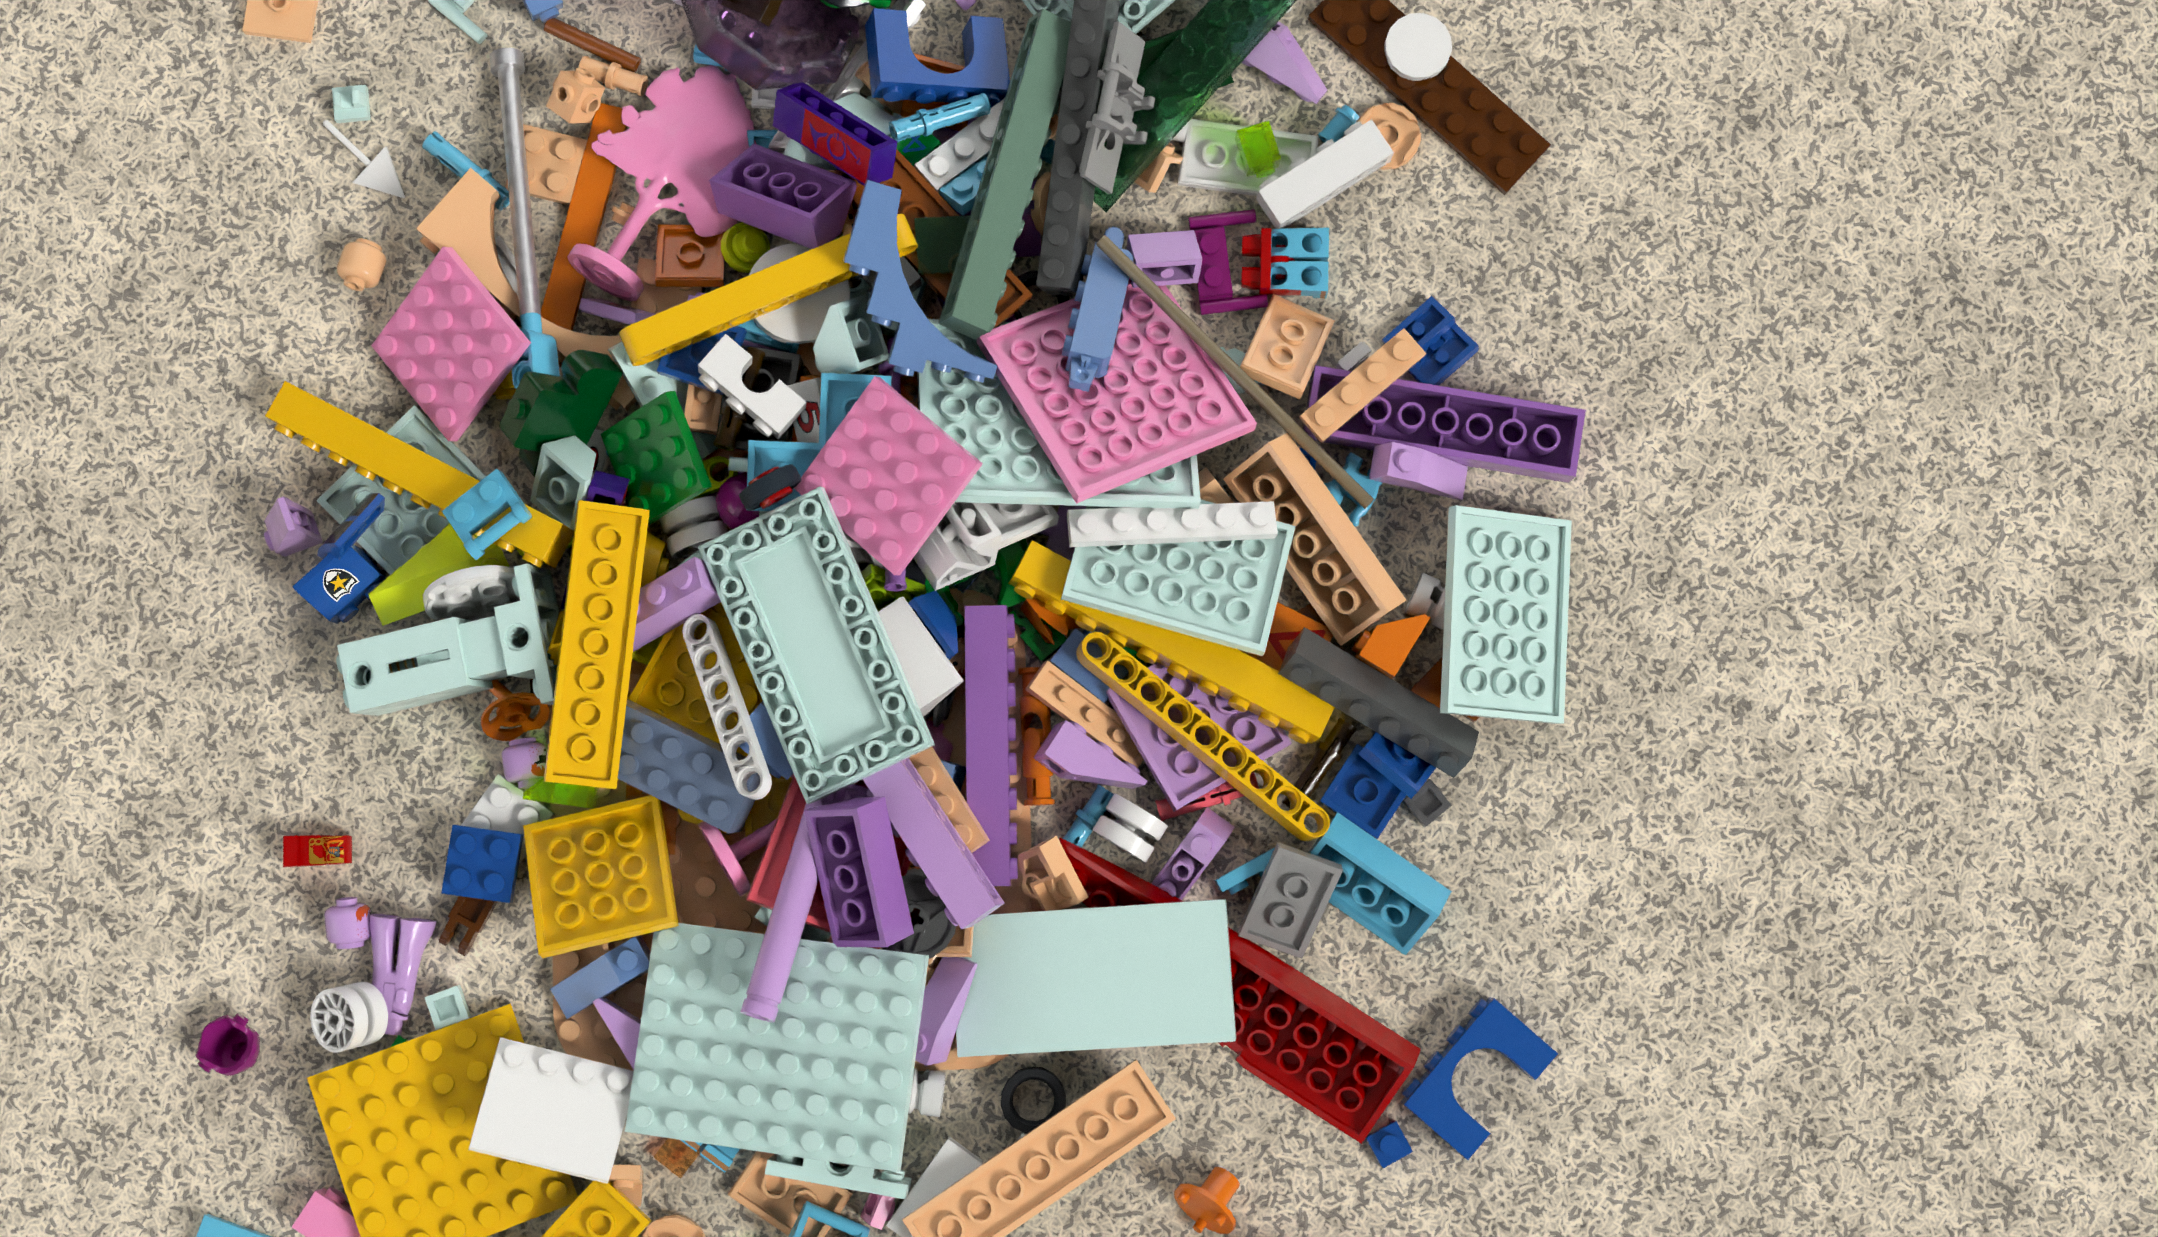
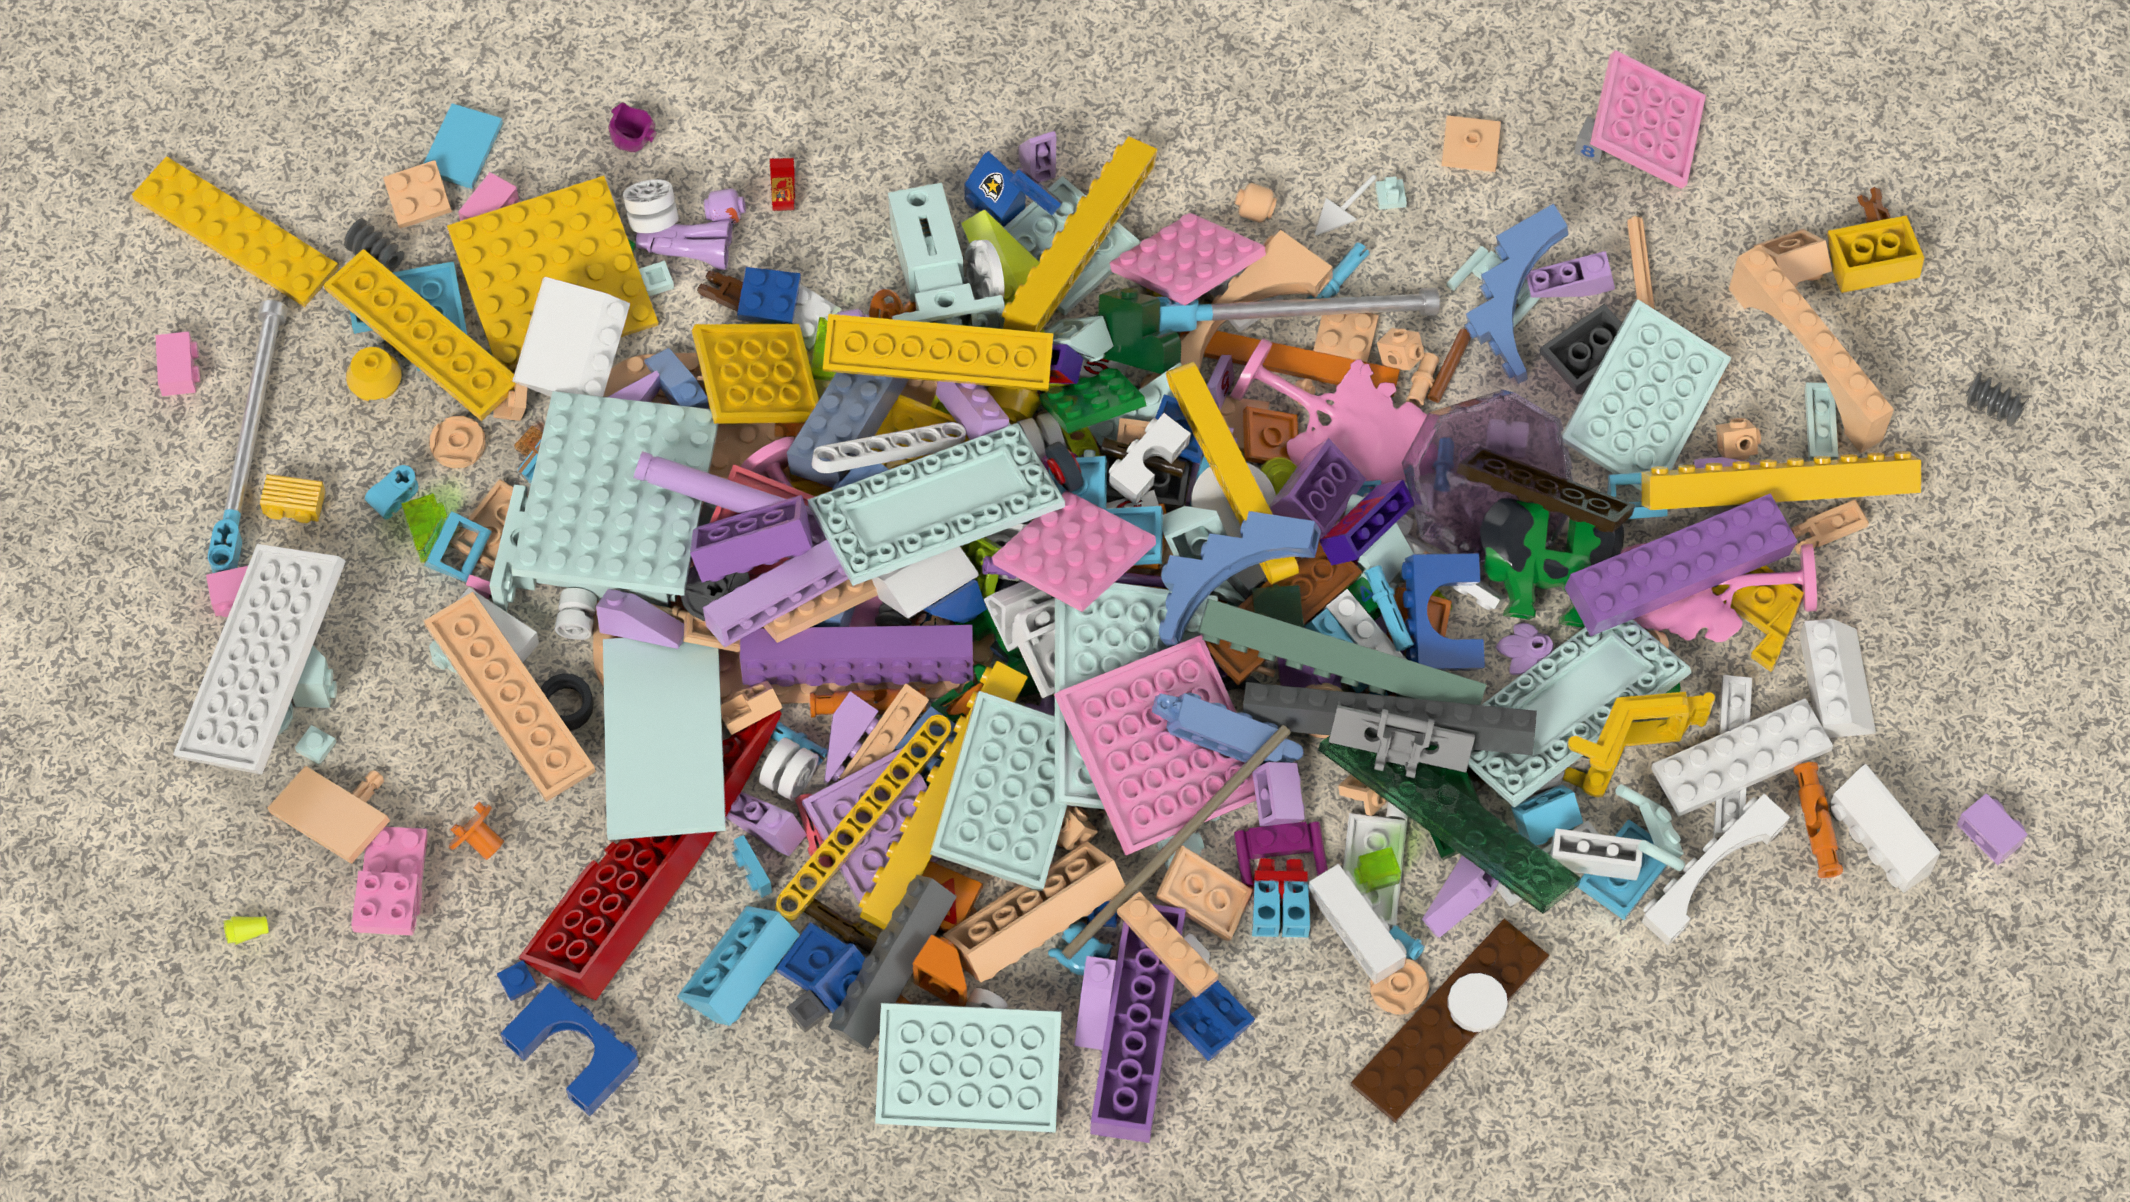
camera: 90 degrees right, 20 degrees down
(481, 506) = (1049, 270): medium azure plate -> none
(1171, 525) = (1040, 783): white plate -> none
(1290, 900) = (725, 893): light grey plate -> none

